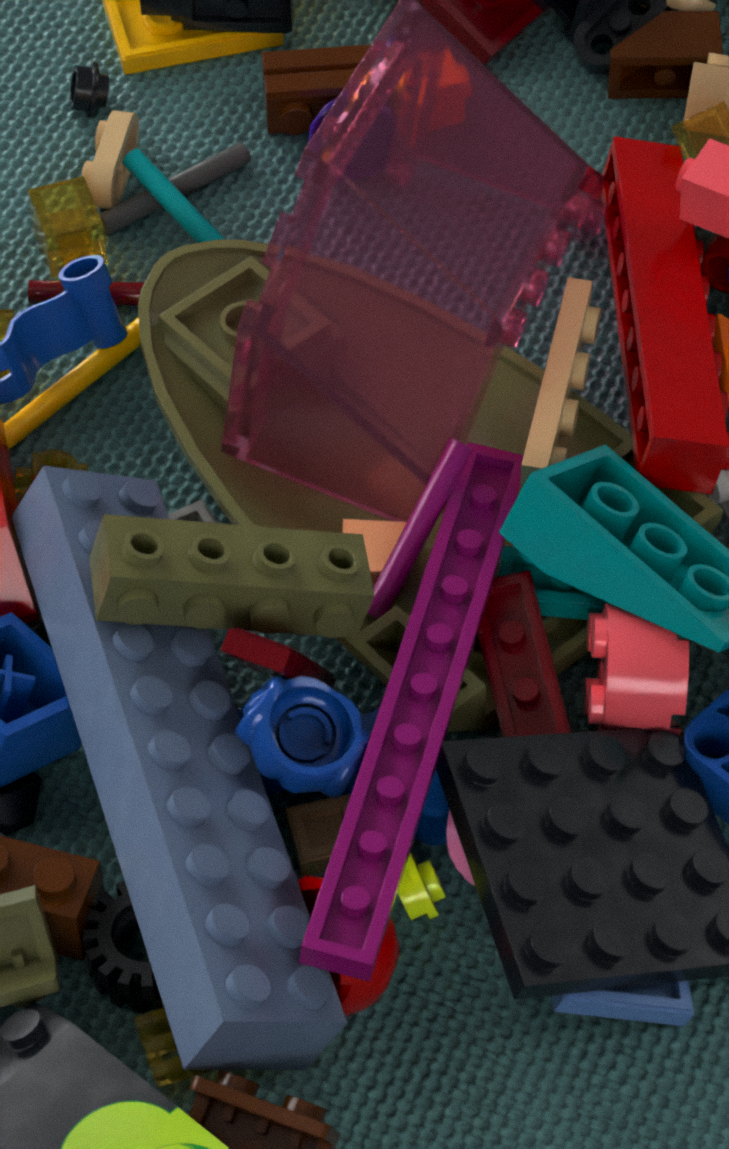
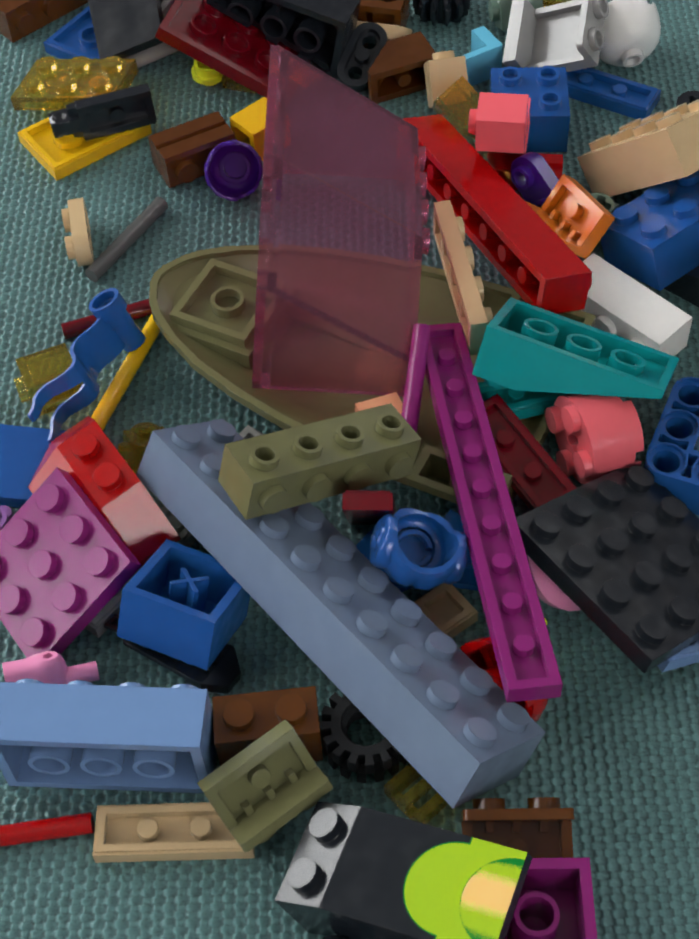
camera: 20 degrees left, 0 degrees up
(66, 223) = (69, 281): clear yellow brick -> none
(88, 89) = (40, 194): black plate -> none
(170, 197) = (130, 243): teal bar -> none

